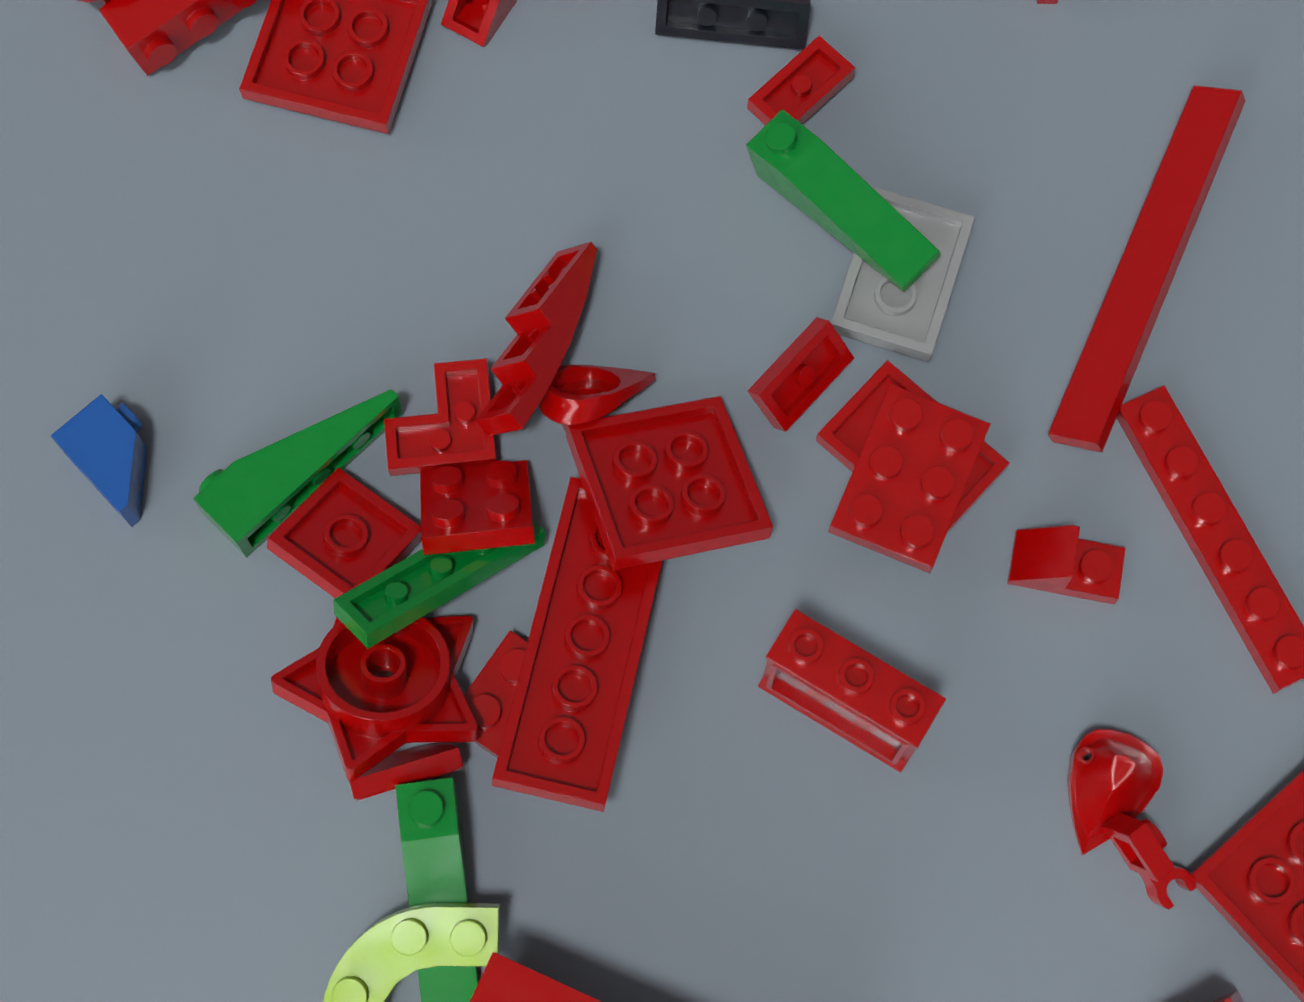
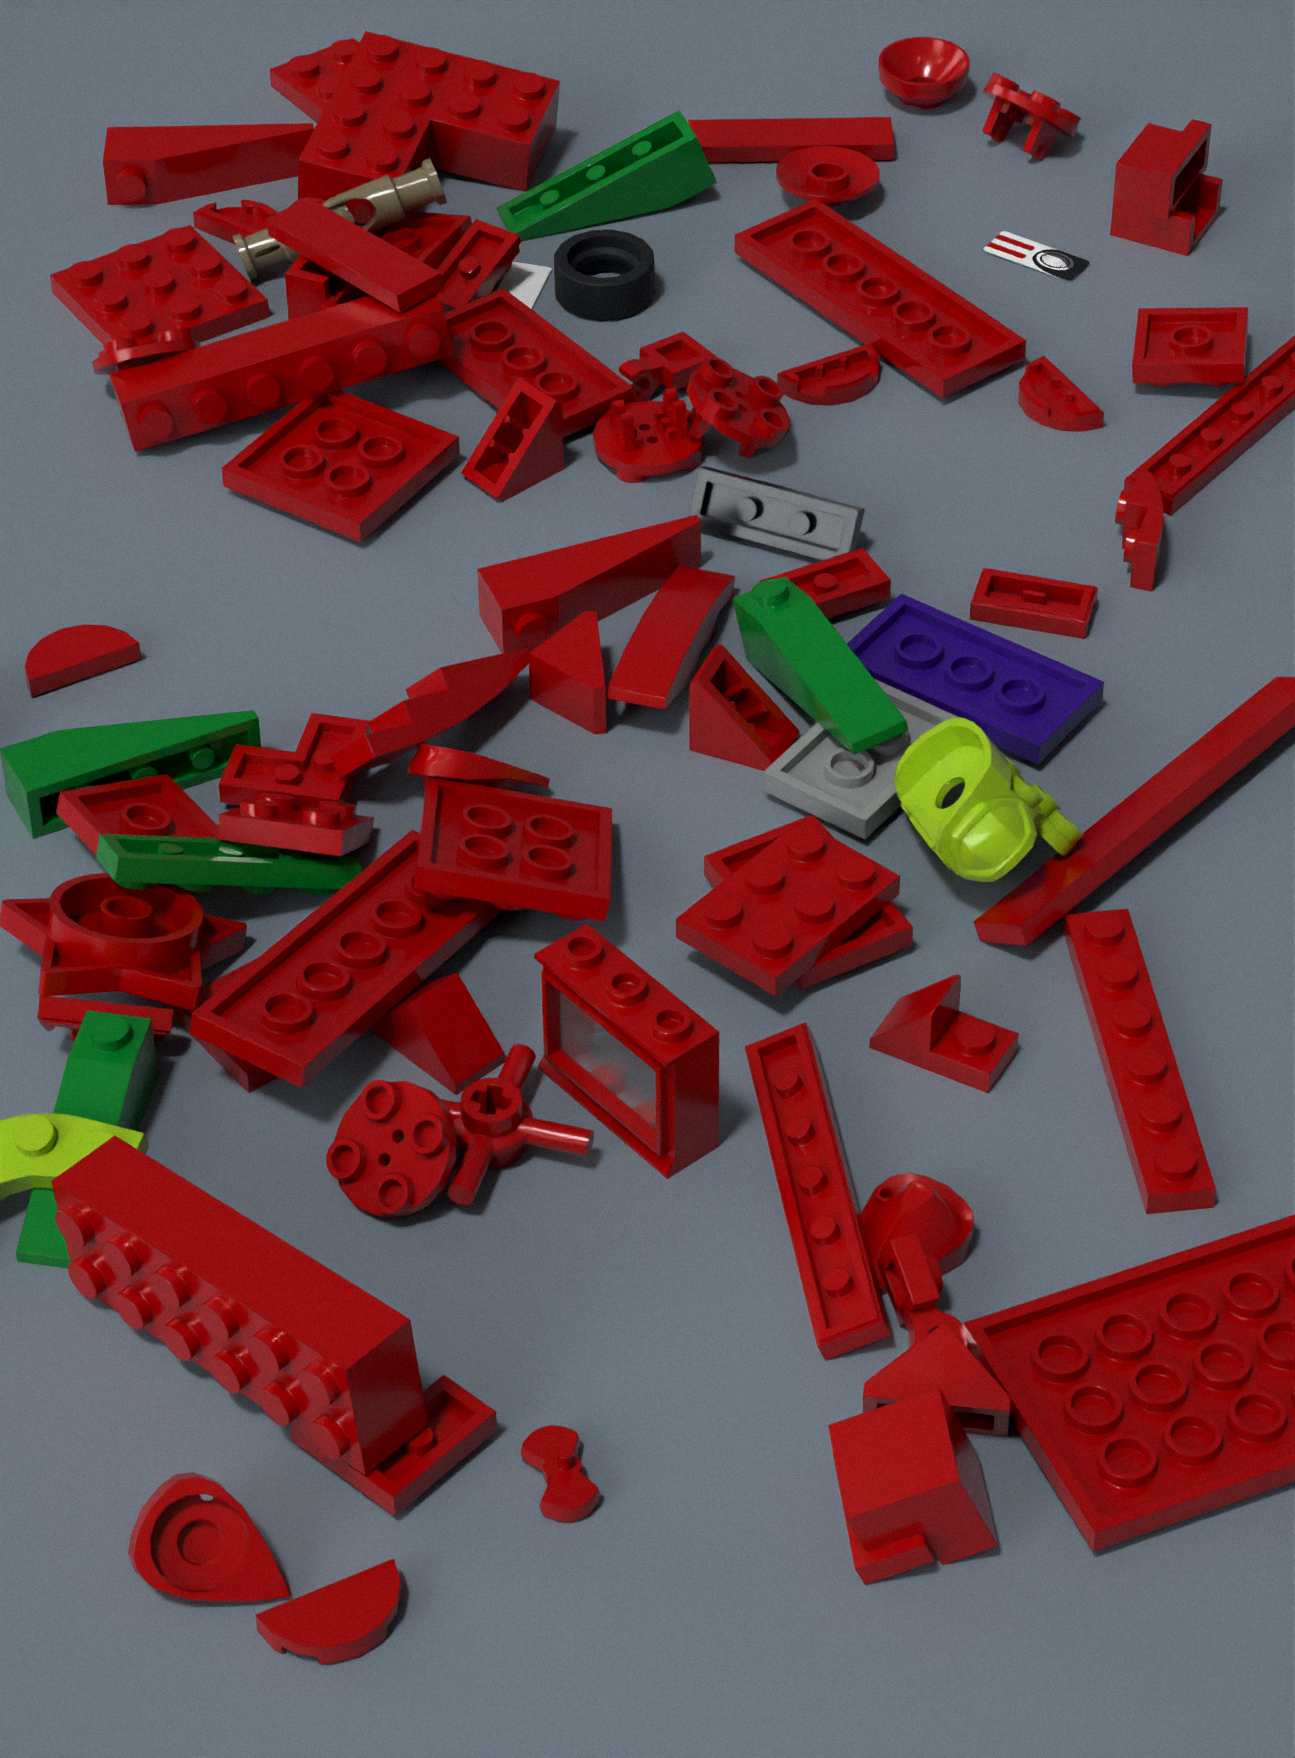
camera: 20 degrees right, 30 degrees down
(198, 340) = (77, 655): none -> red tile
(579, 161) = (543, 592): none -> red slope
(633, 252) = (569, 674): none -> red slope
(677, 686) = (442, 1033): none -> red slope
(698, 186) = (669, 636): none -> red slope
(718, 851) = (371, 1136): none -> red plate
(770, 764) = (497, 1124): none -> red bar
(788, 264) = (734, 715): none -> red slope
(800, 374) = (710, 809): red plate -> none
(955, 158) = (1002, 687): none -> dark purple plate
(971, 57) = (1033, 603): none -> red tile
(1027, 760) = (817, 1193): none -> red tile
(1051, 360) = (994, 816): none -> lime piece
(1193, 949) = (947, 1363): none -> red slope

